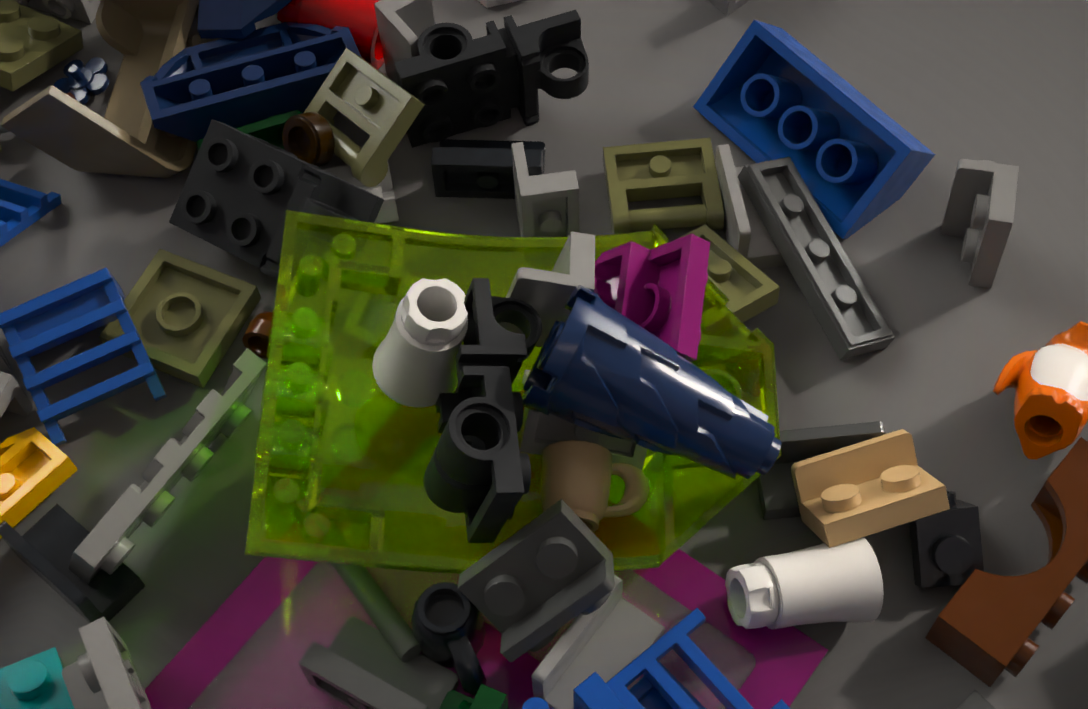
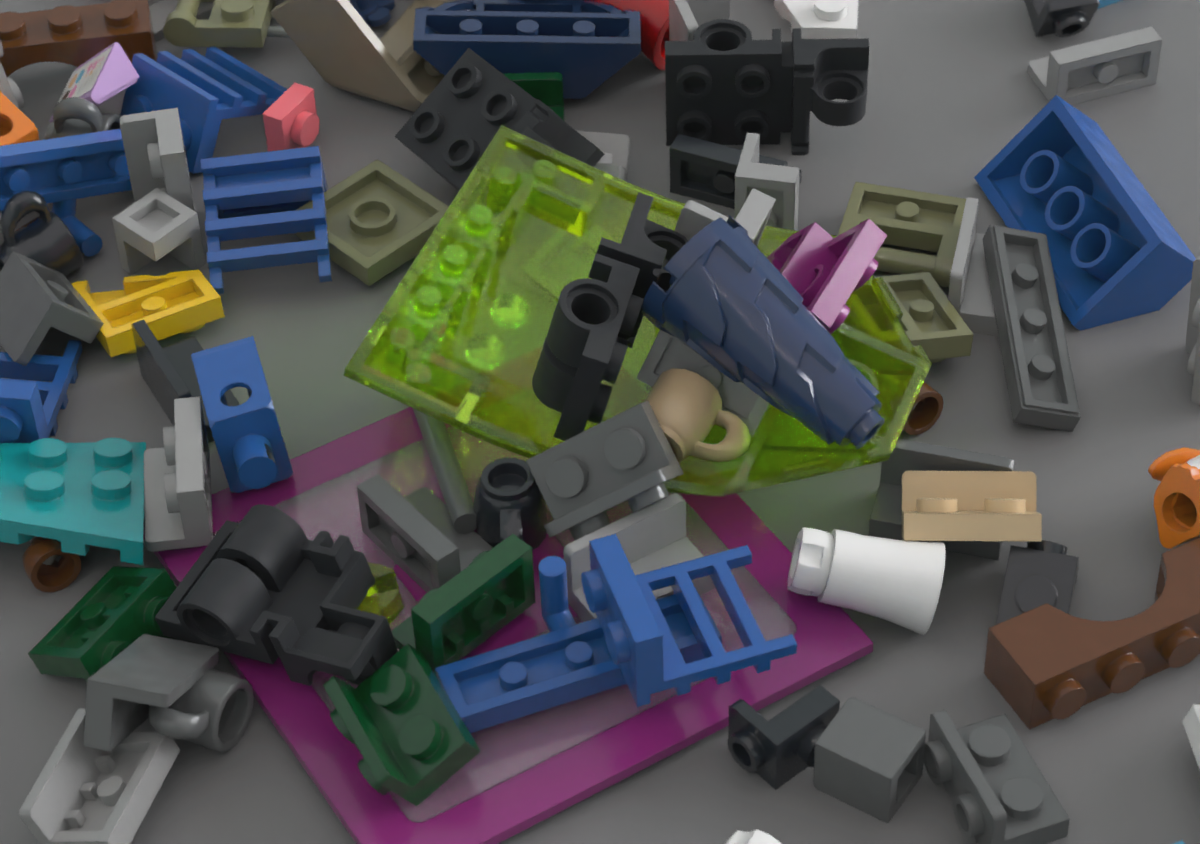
camera: 20 degrees right, 15 degrees down
(61, 230) = (292, 119): none -> coral plate
(163, 632) = (245, 434): none -> blue torso
(216, 414) = (320, 318): light grey wing -> none
(309, 138) = (561, 93): dark brown tile -> none
(372, 104) = (630, 75): olive plate -> none
(422, 344) = (576, 227): white plant -> none

